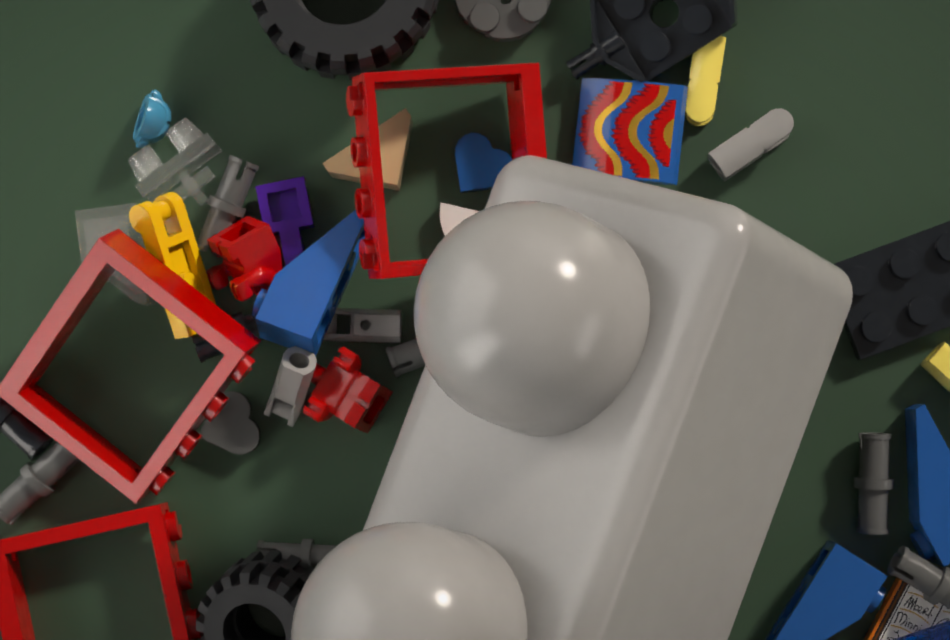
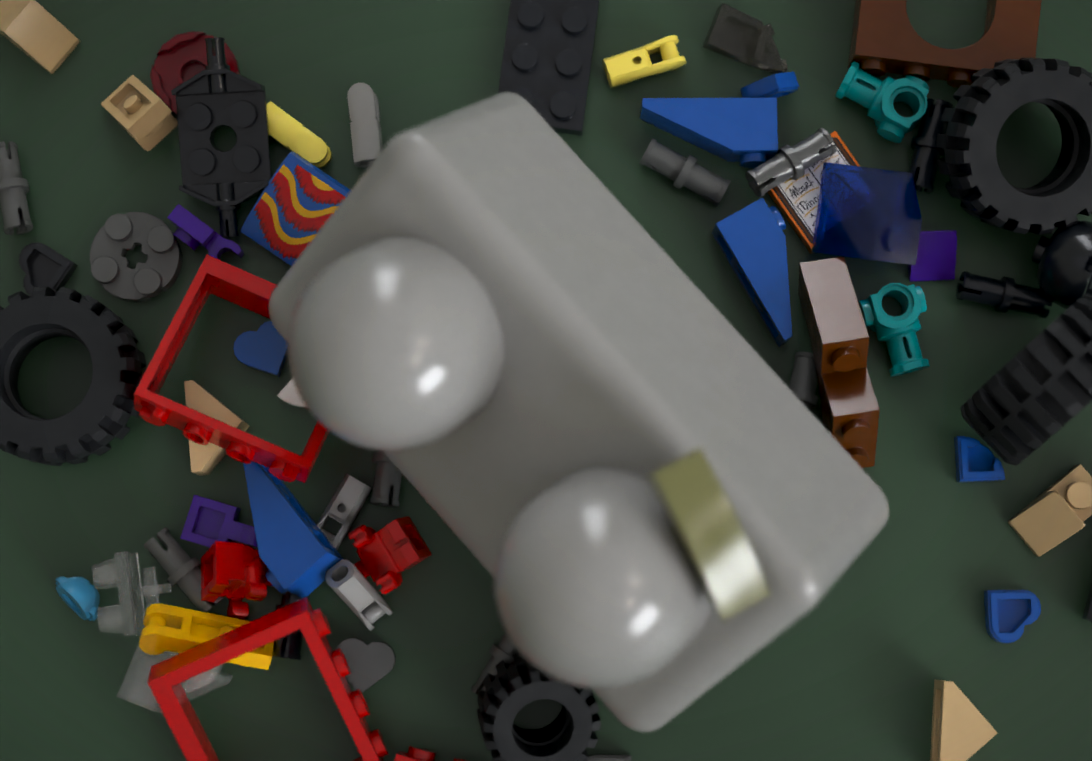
camera: 65 degrees left, 5 degrees down
(556, 35) = (195, 233): none -> dark purple plate

